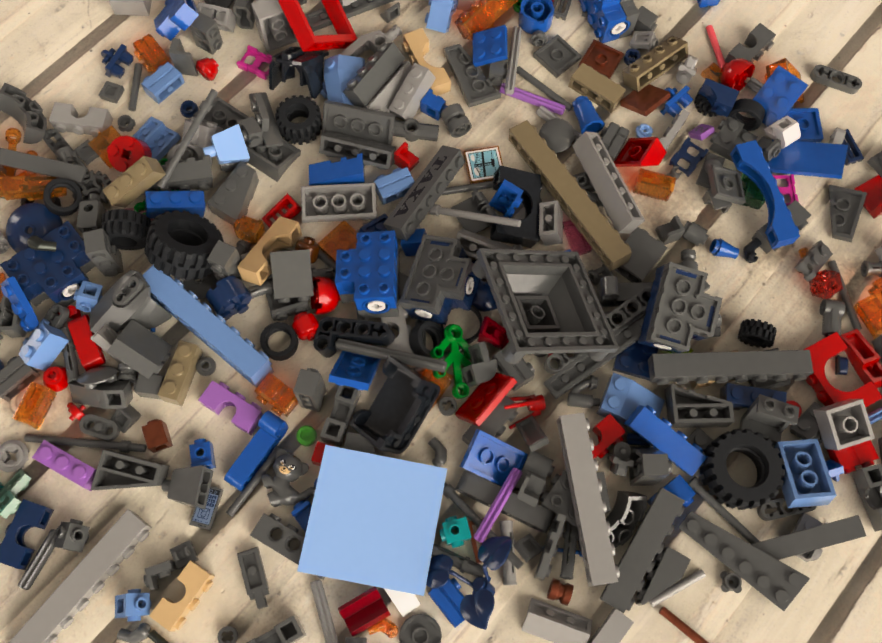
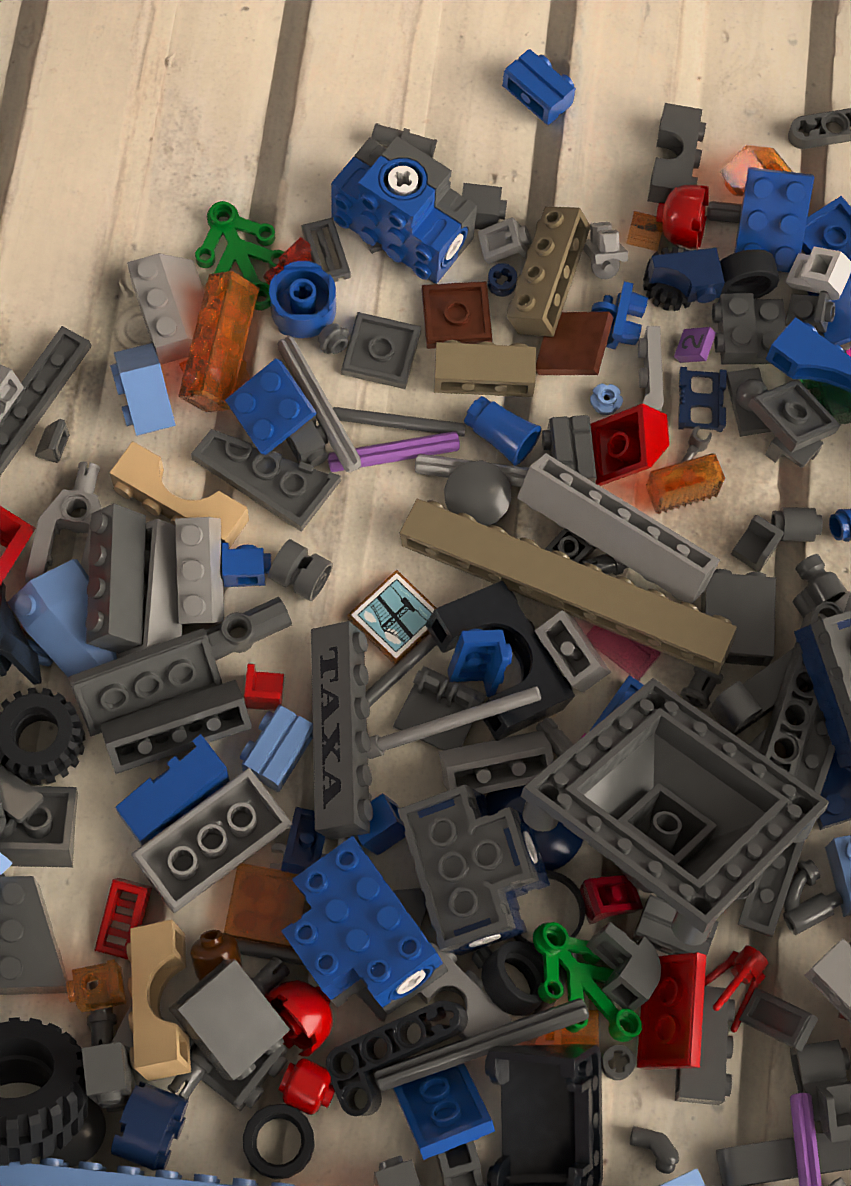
camera: 35 degrees left, 0 degrees up
(492, 458) = (749, 1102): plate -> none
(715, 45) = (620, 181): coral bar -> none

